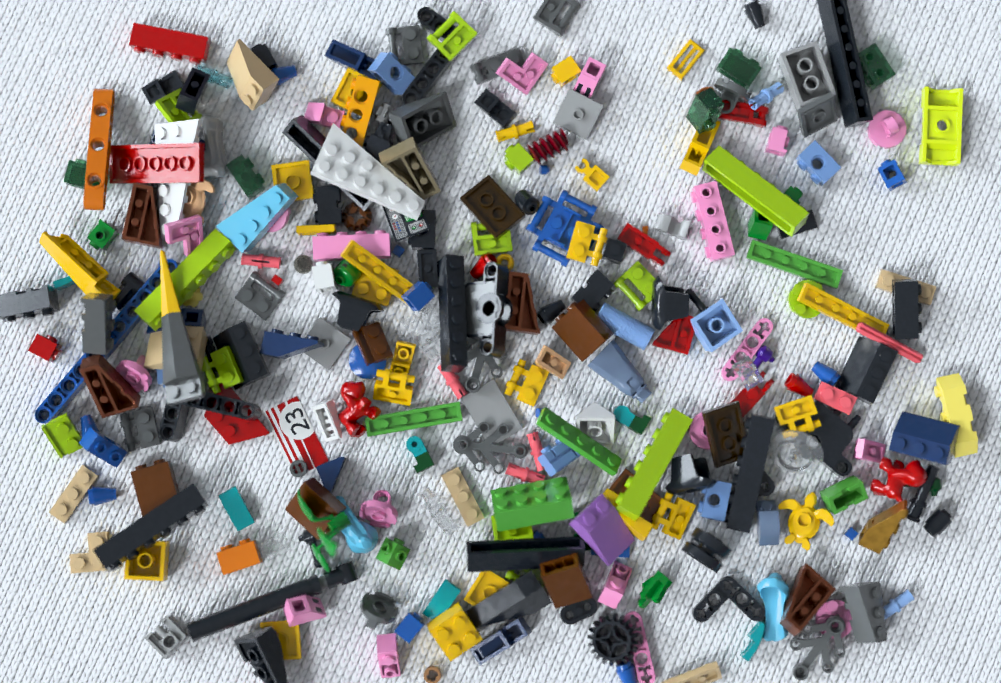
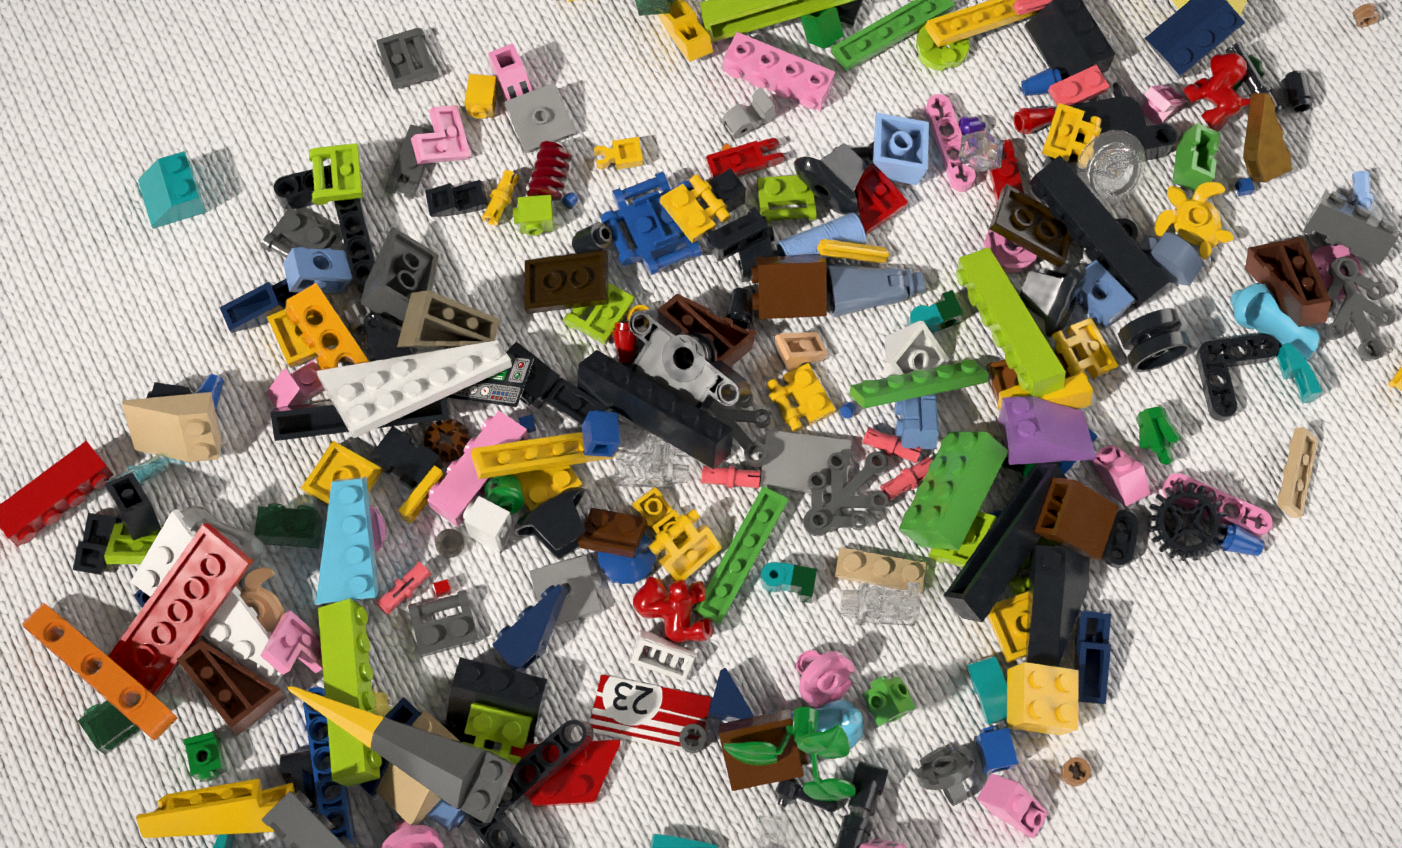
camera: 55 degrees left, 15 degrees down
(587, 277) = (736, 235): none -> black hinge
(630, 347) = (852, 251): none -> yellow axle

